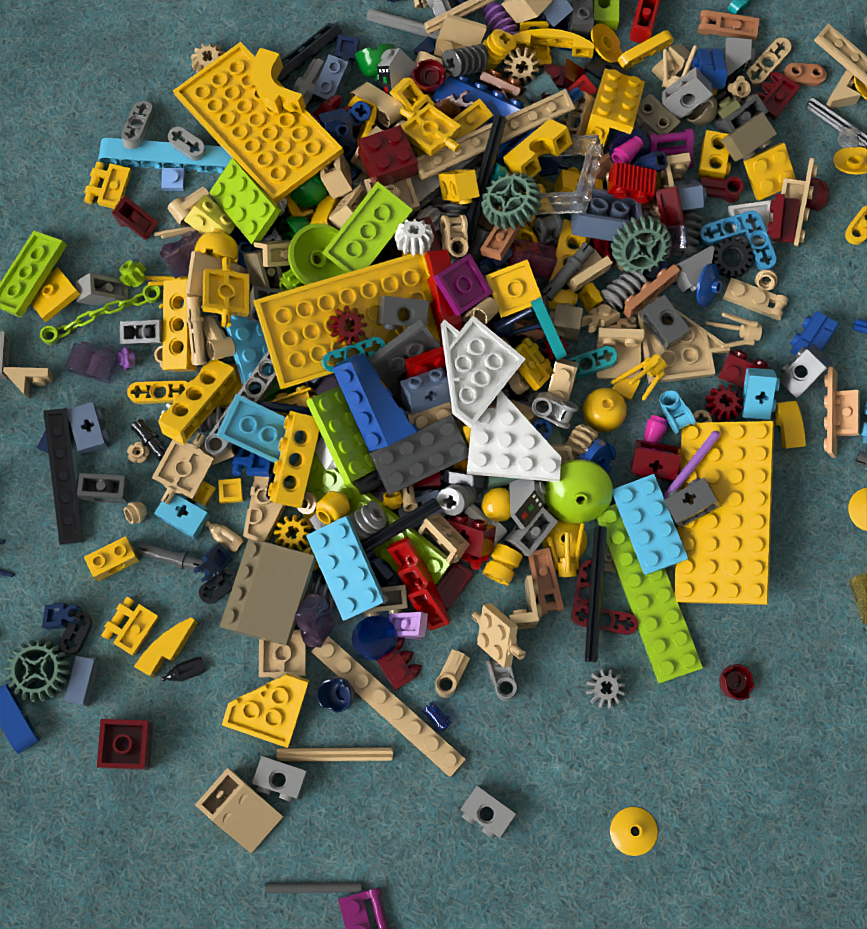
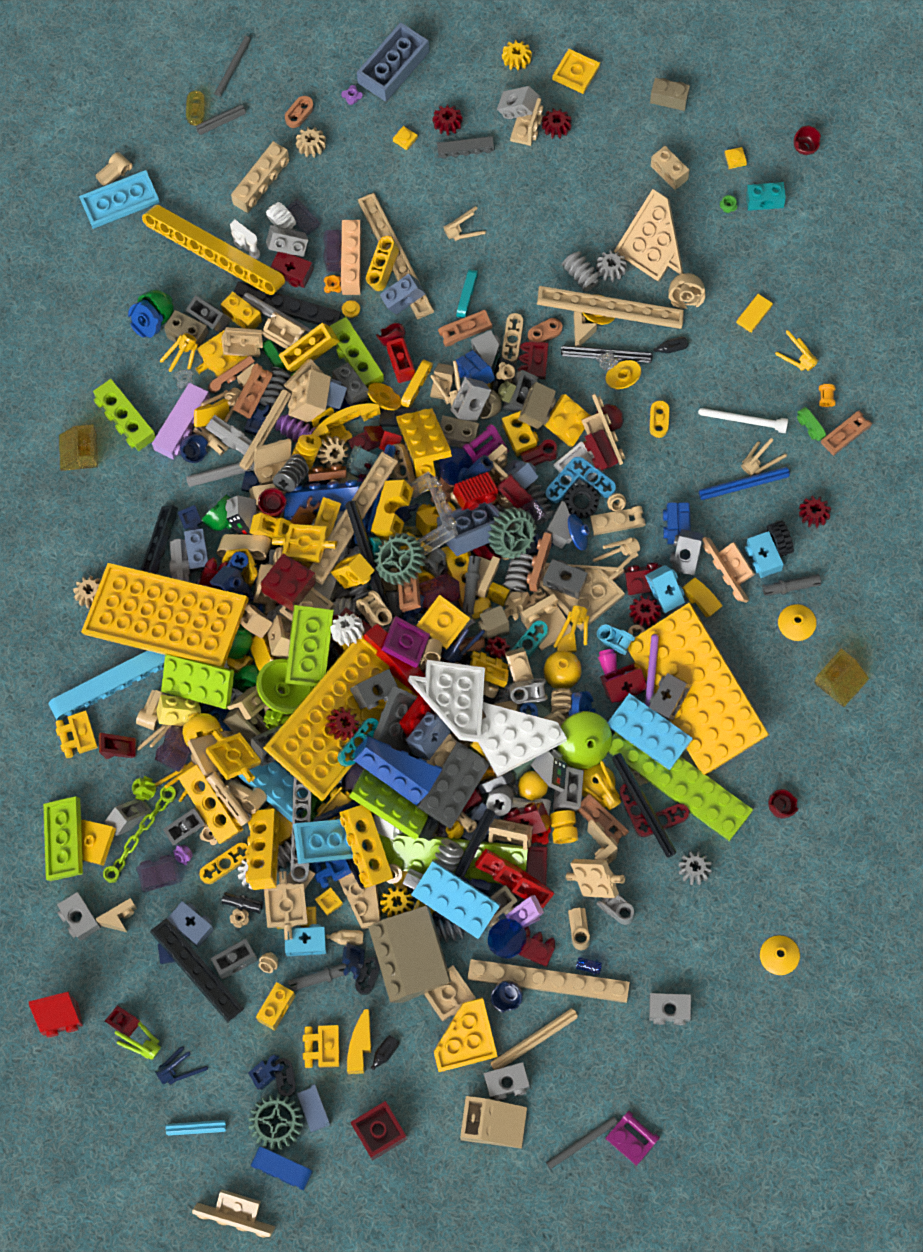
camera: 30 degrees left, 5 degrees down
(128, 140) = (75, 678): light grey beam -> none
(173, 179) = (123, 698): light blue plate -> none
(189, 140) = (119, 660): light grey beam -> none
(265, 72) = (165, 589): yellow arch -> none
(314, 620) = (457, 952): clear purple brick -> none
(332, 507) = (416, 863): yellow head -> none
(548, 328) = (487, 635): teal beam -> none
(627, 151) = (456, 471): dark pink cone -> none

